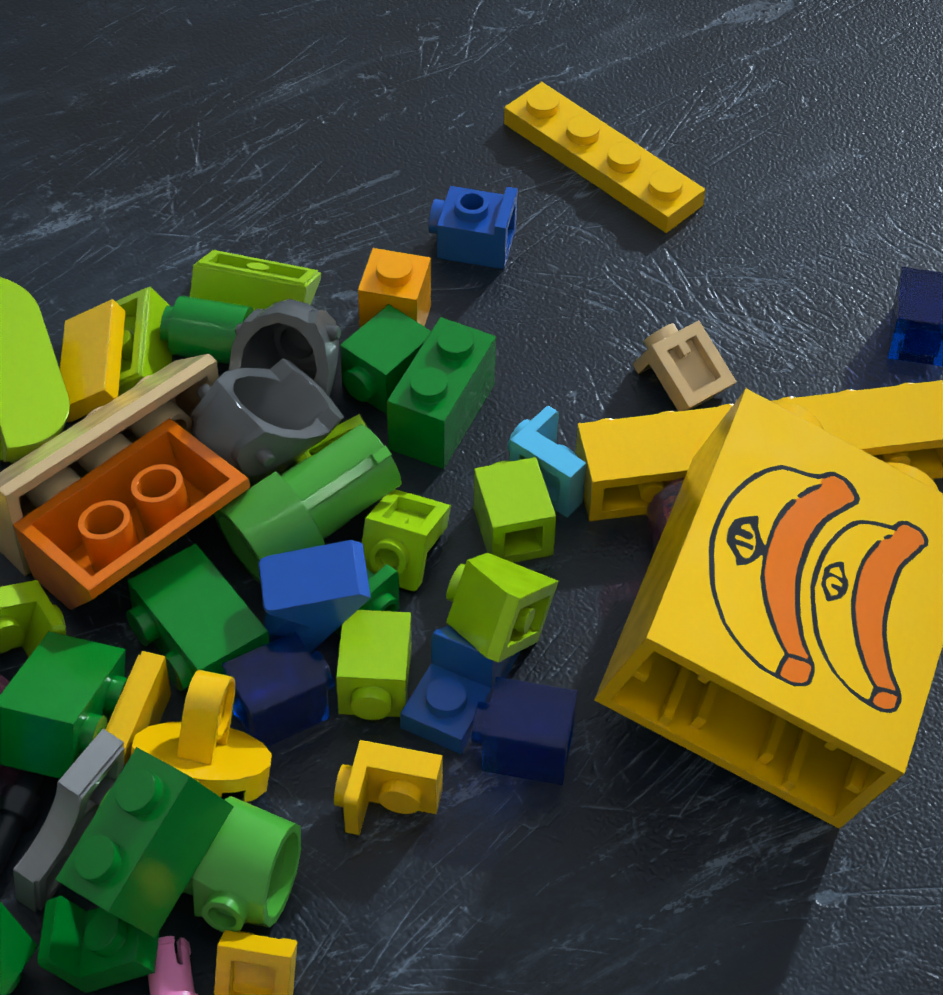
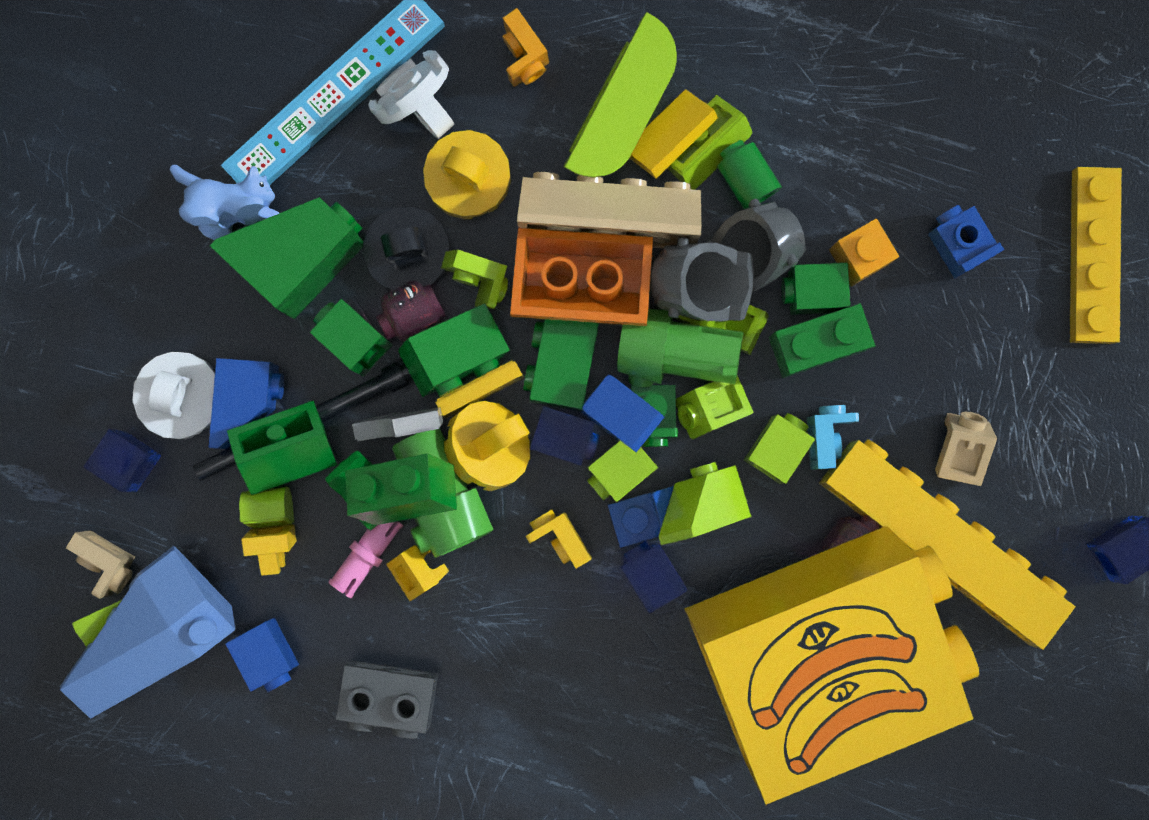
camera: 50 degrees right, 35 degrees up
(251, 280) = (808, 159): lime slope -> none

